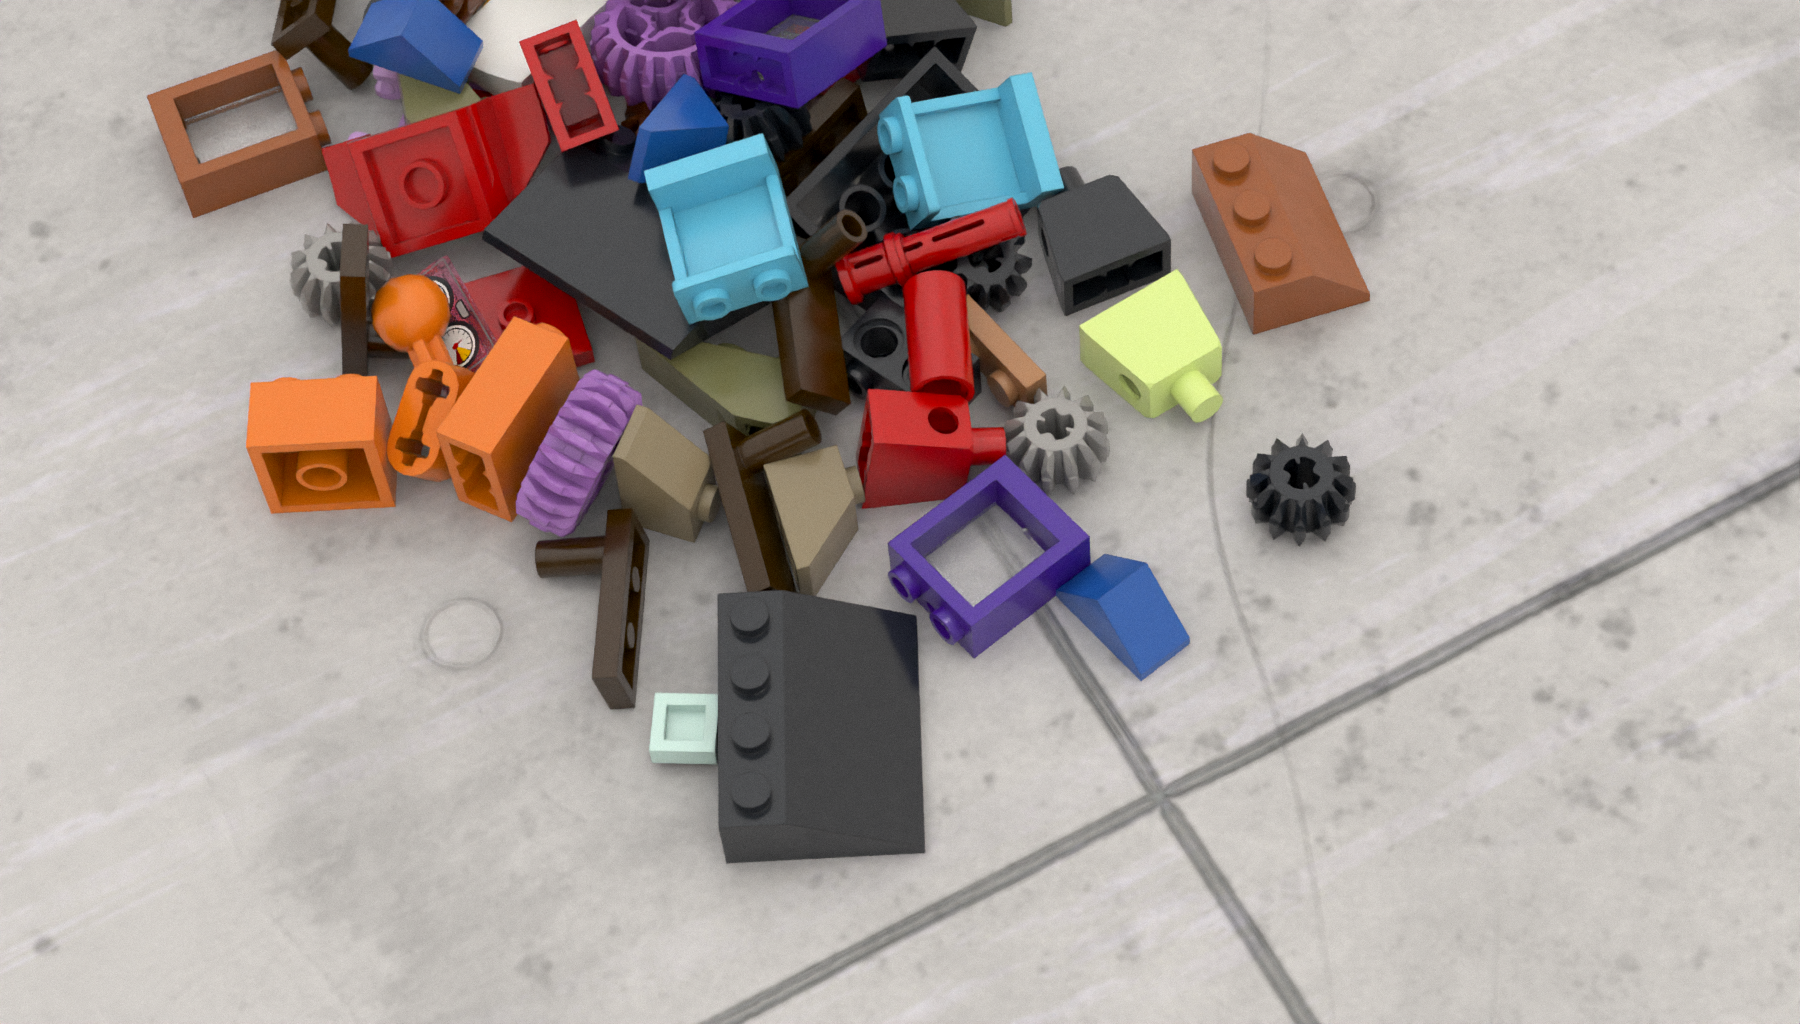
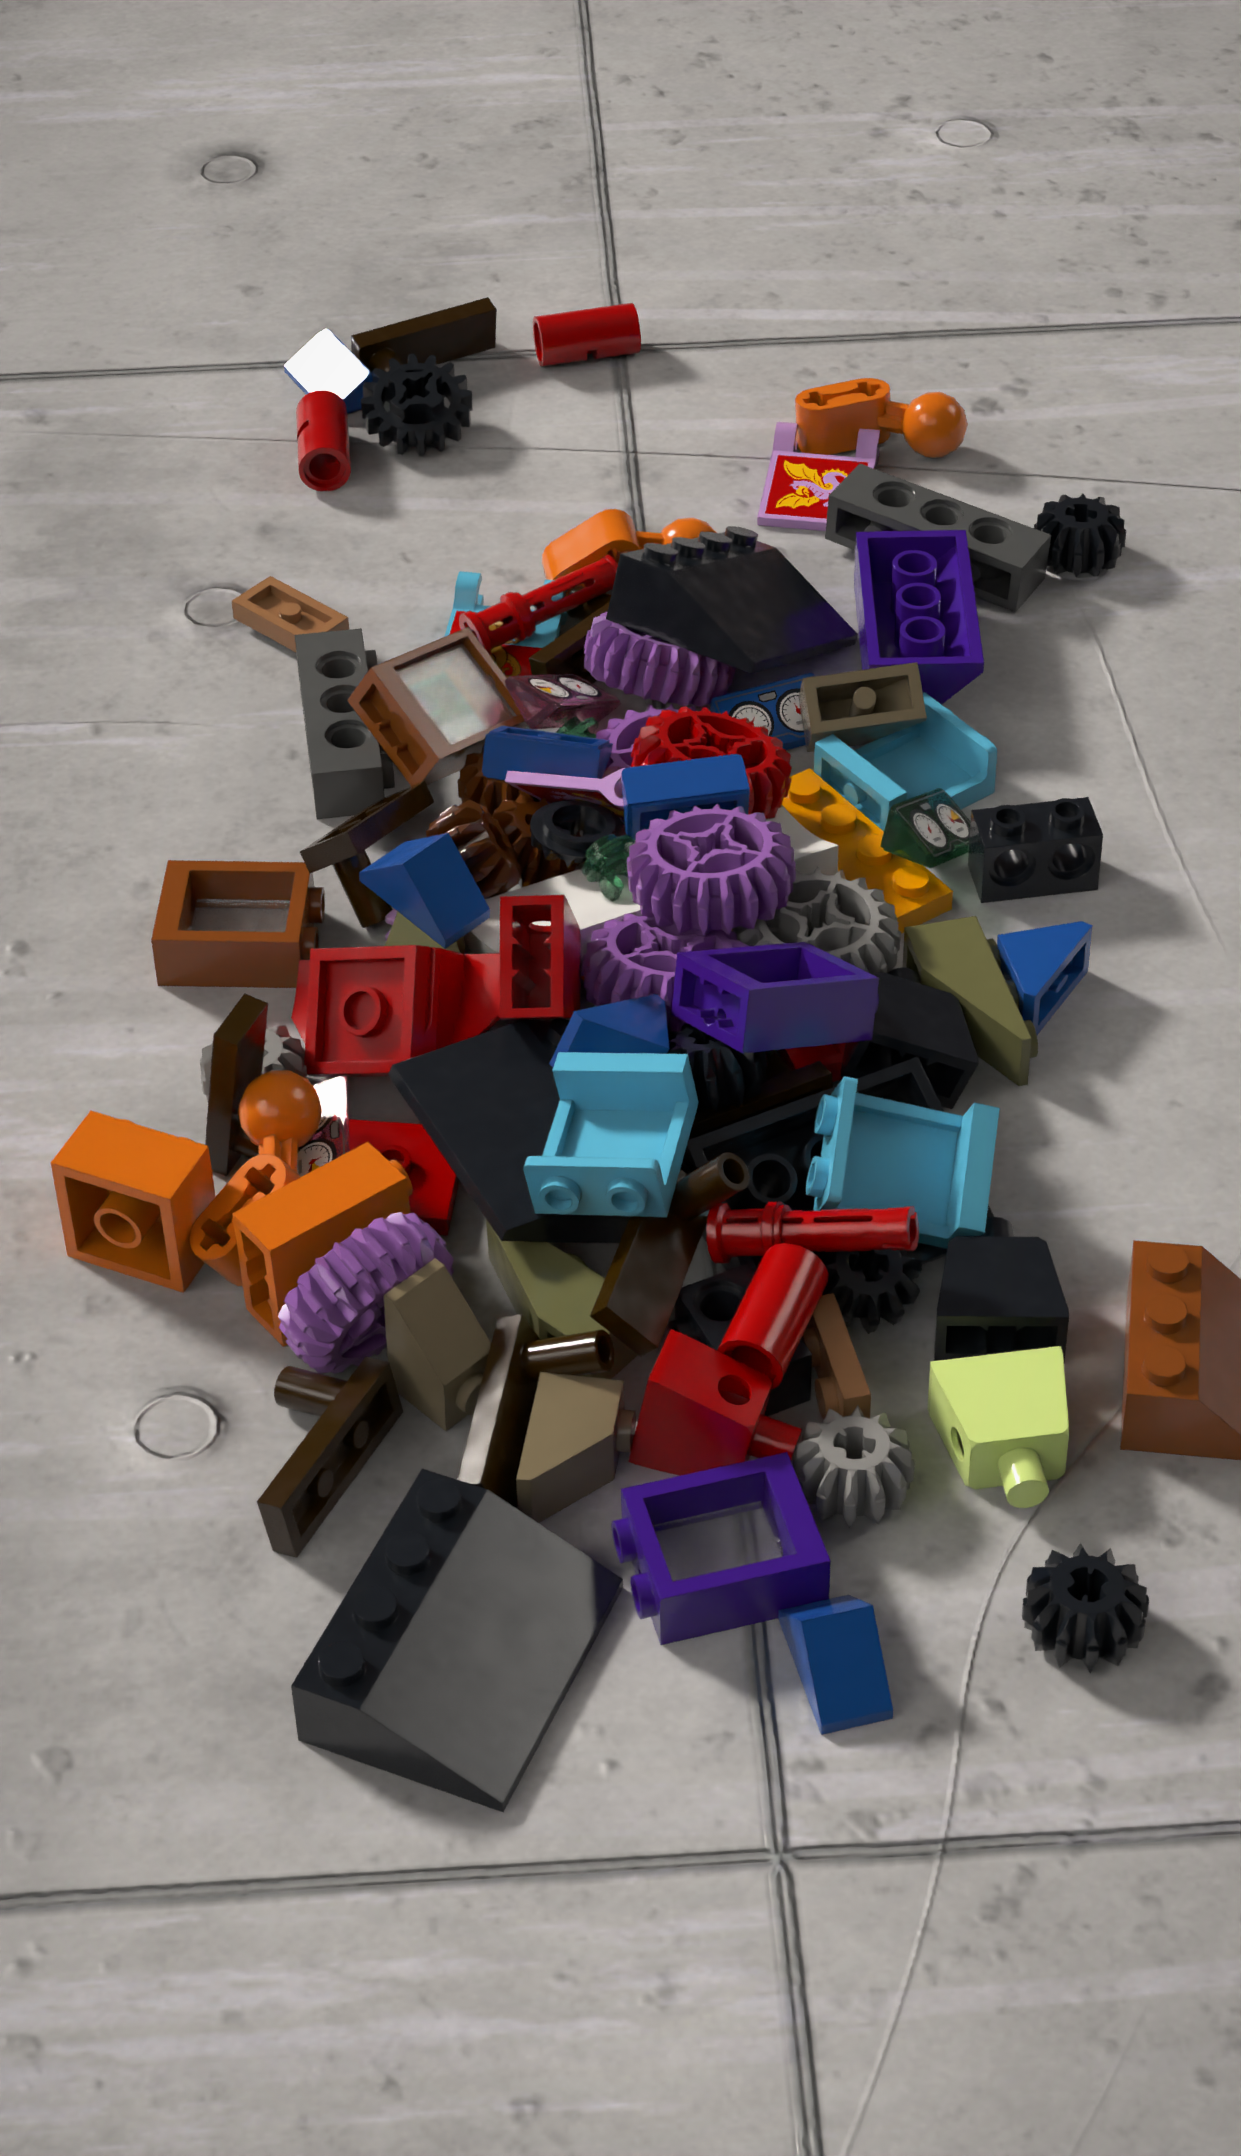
camera: 20 degrees right, 15 degrees down
(684, 728) = (318, 1587): light aqua plate -> none

